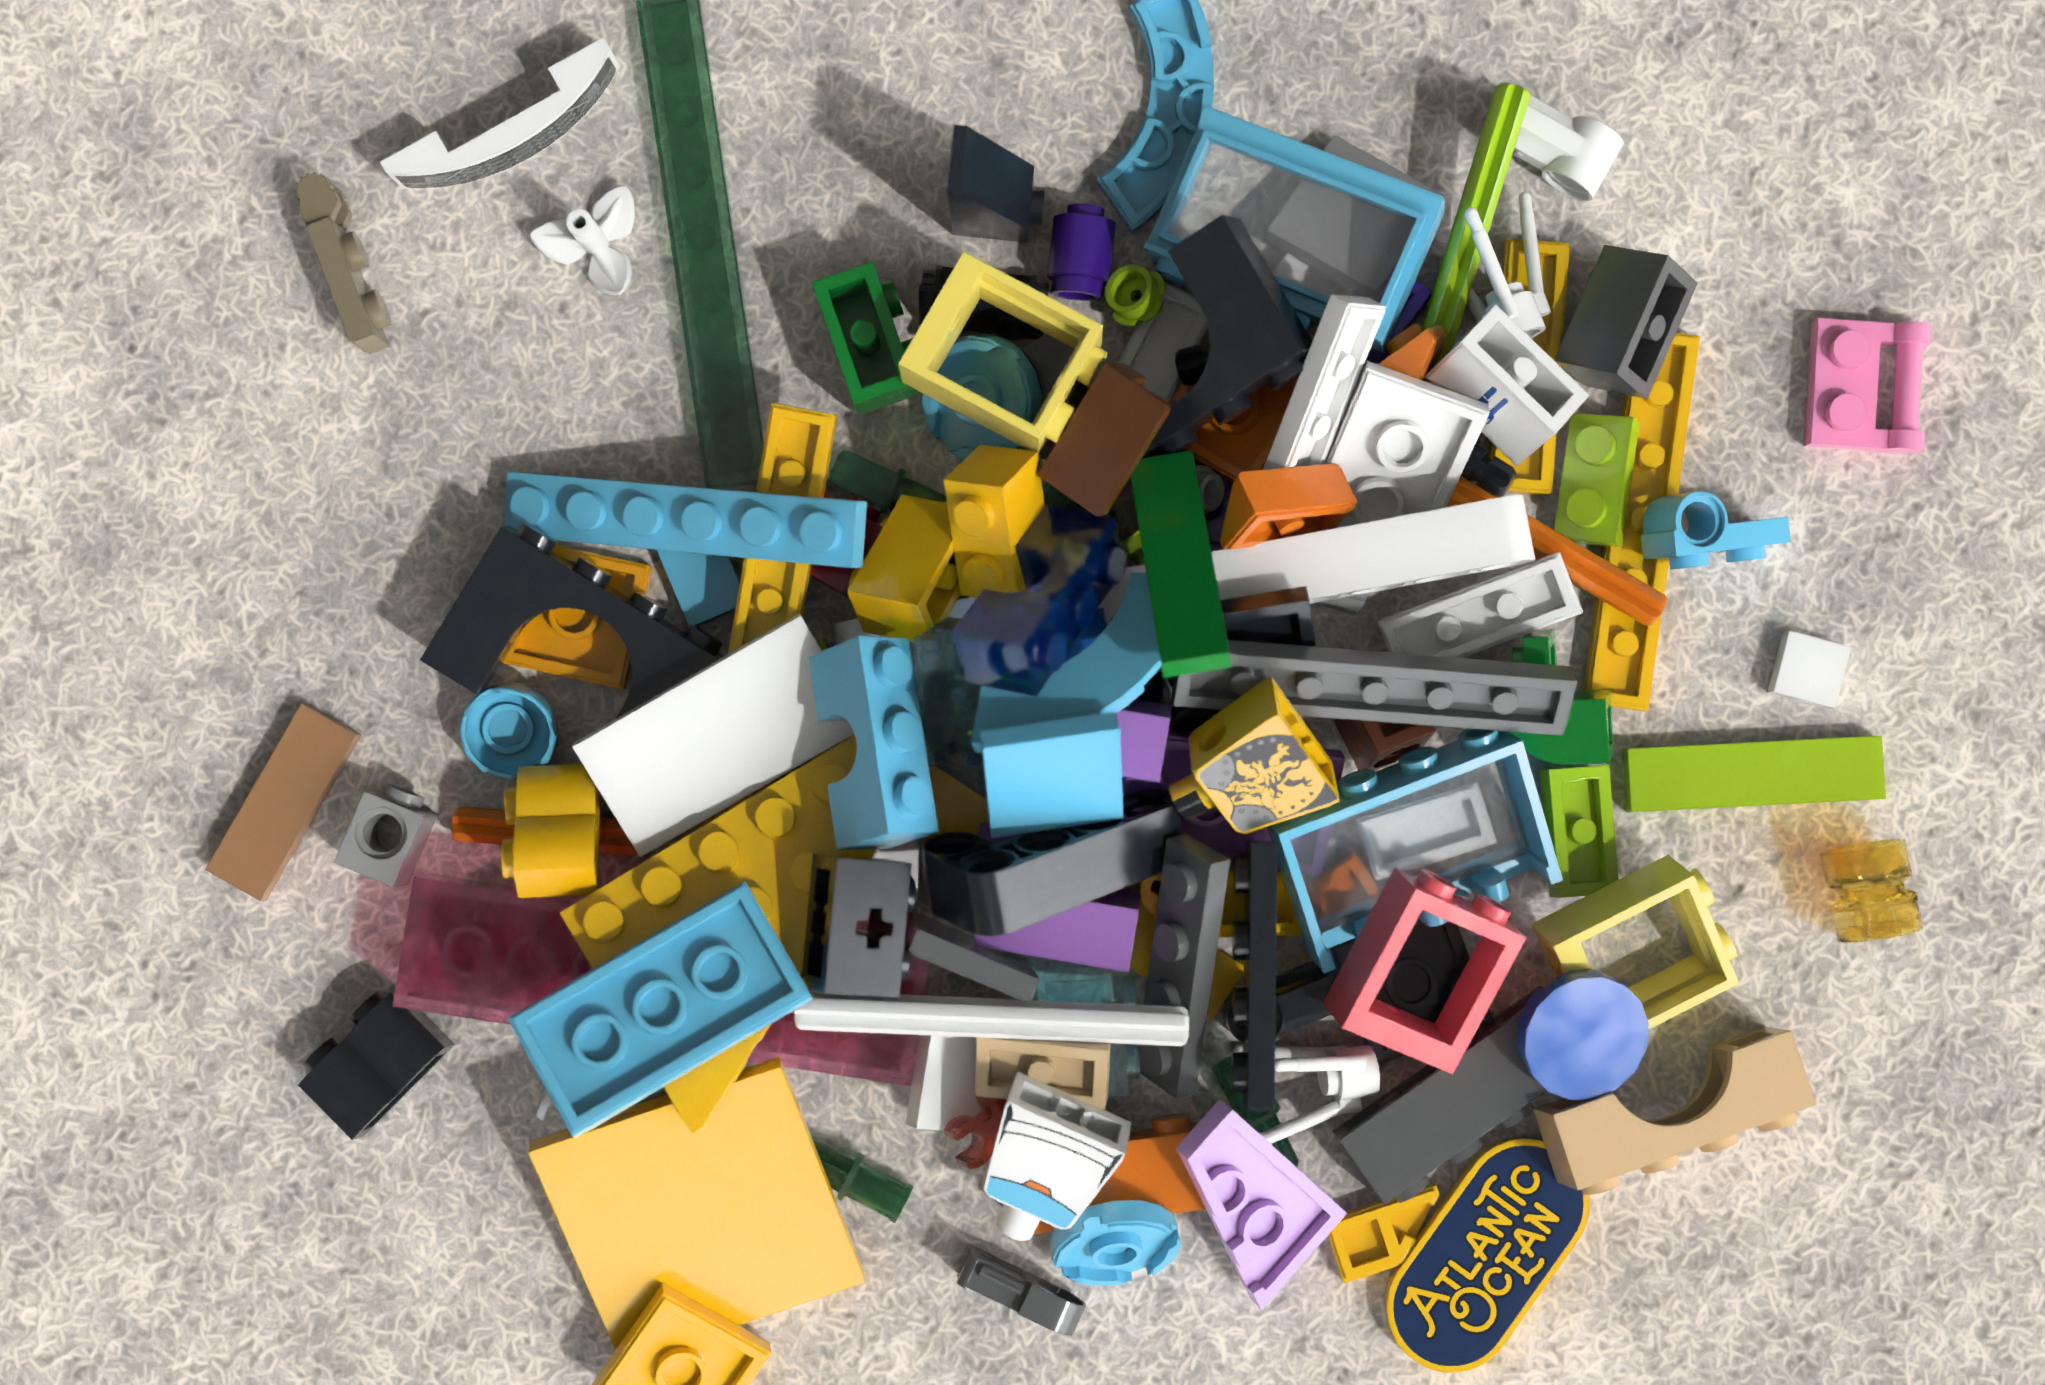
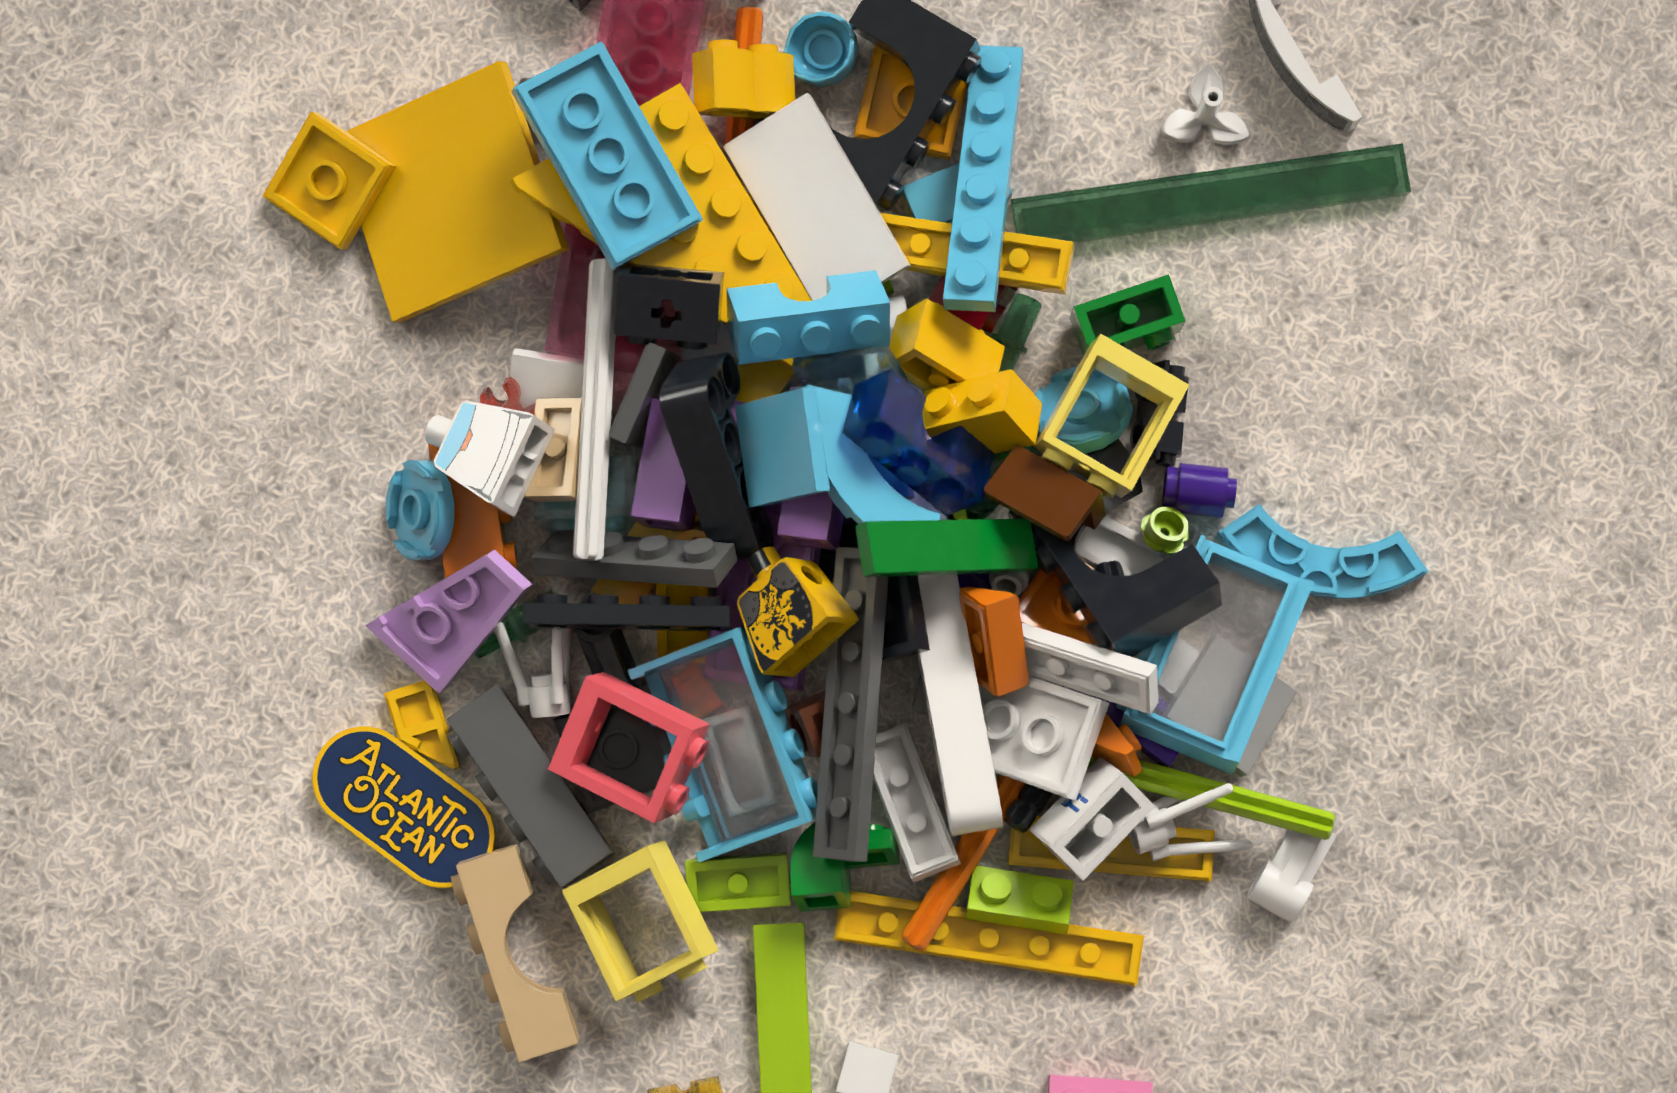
camera: 90 degrees right, 5 degrees down
(862, 1181) = (470, 318): clear green axle -> none
(991, 189) = (1244, 413): black slope -> none
(1021, 1291) = (382, 440): dark grey piece -> none
(1582, 1035) = (577, 871): tile -> none
(1626, 321) = (1146, 920): dark grey brick -> none
(1706, 531) = (971, 1012): medium azure plate -> none

